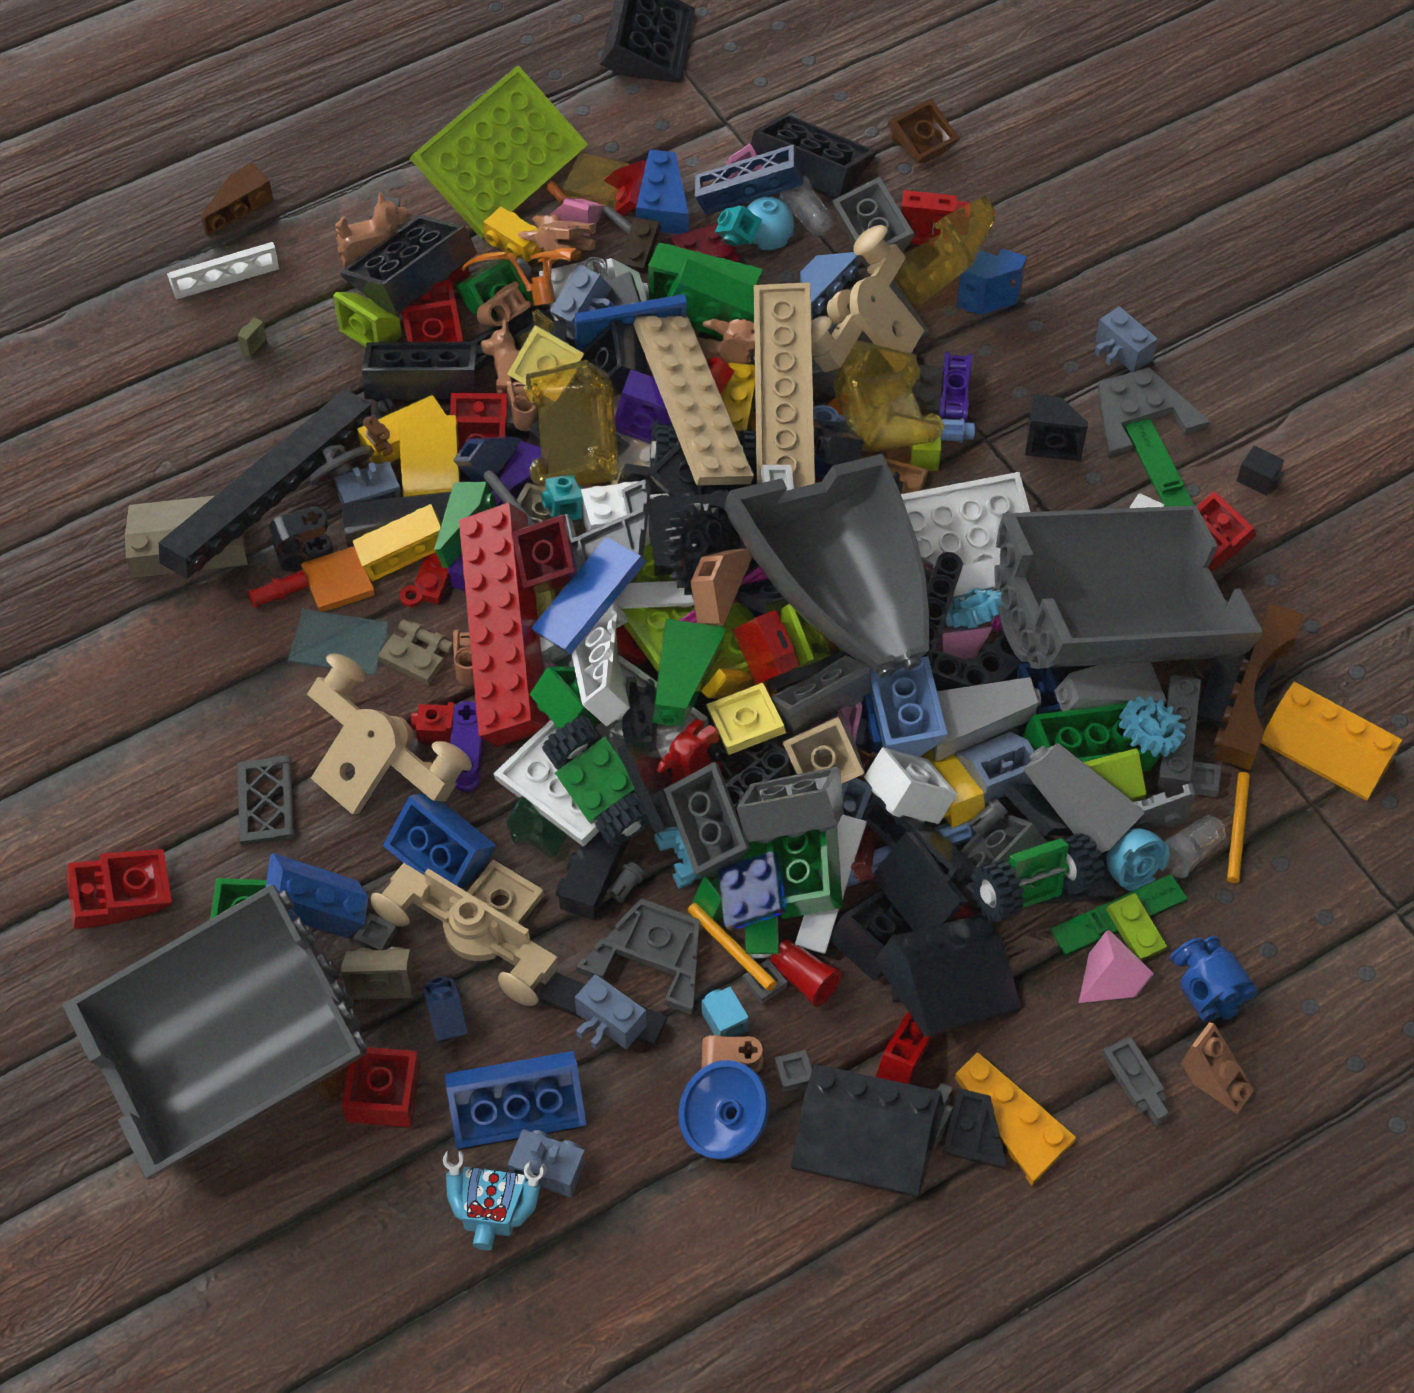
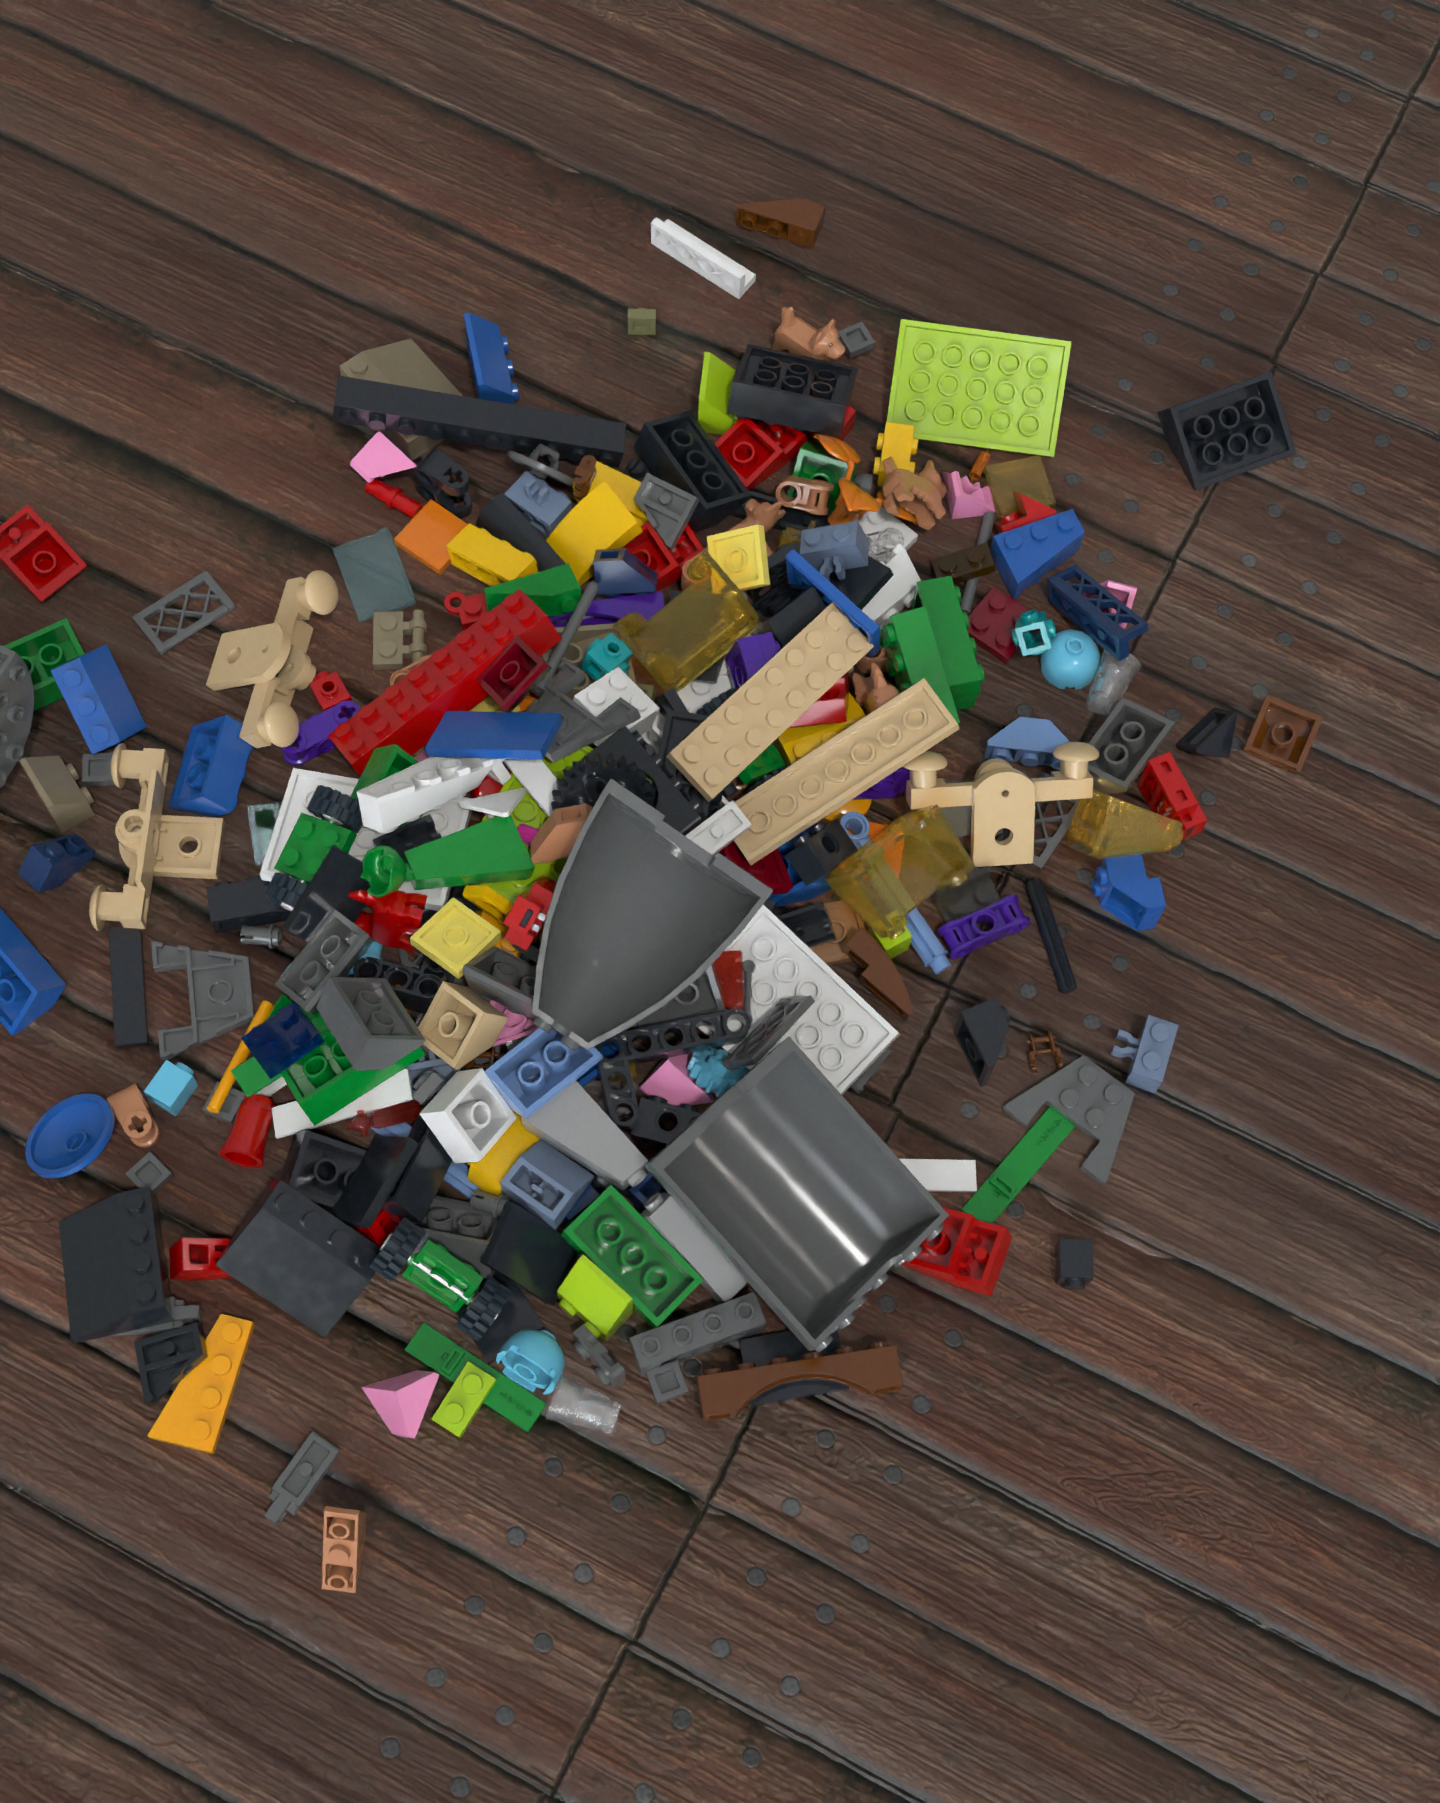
camera: 55 degrees right, 10 degrees up
(205, 458) = (488, 360): none -> blue slope
(243, 570) = (380, 458): none -> bright pink slope
(450, 395) = (665, 507): none -> dark grey wing
(609, 1013) = (111, 993): sand blue brick -> none
(647, 625) = (495, 804): none -> white piece
(661, 728) = (383, 870): none -> green hair
(822, 156) = (1183, 650): black slope -> none
(863, 804) = (427, 1087): none -> dark grey plate
(891, 171) = (1211, 735): none -> black slope
(951, 467) = (880, 973): none -> reddish brown slope
(986, 544) = (768, 1032): none -> dark grey window
(988, 353) = (1051, 936): none -> black axle
(1080, 400) = (1052, 1050): none -> reddish brown piece
(1082, 796) = (542, 1285): light grey slope -> none
(1150, 724) = (660, 1289): medium azure gear -> none
(1214, 979) = (431, 1498): blue piece -> none
(1238, 827) = (635, 1441): light orange bar -> none
(1330, 741) = (781, 1484): light orange slope -> none

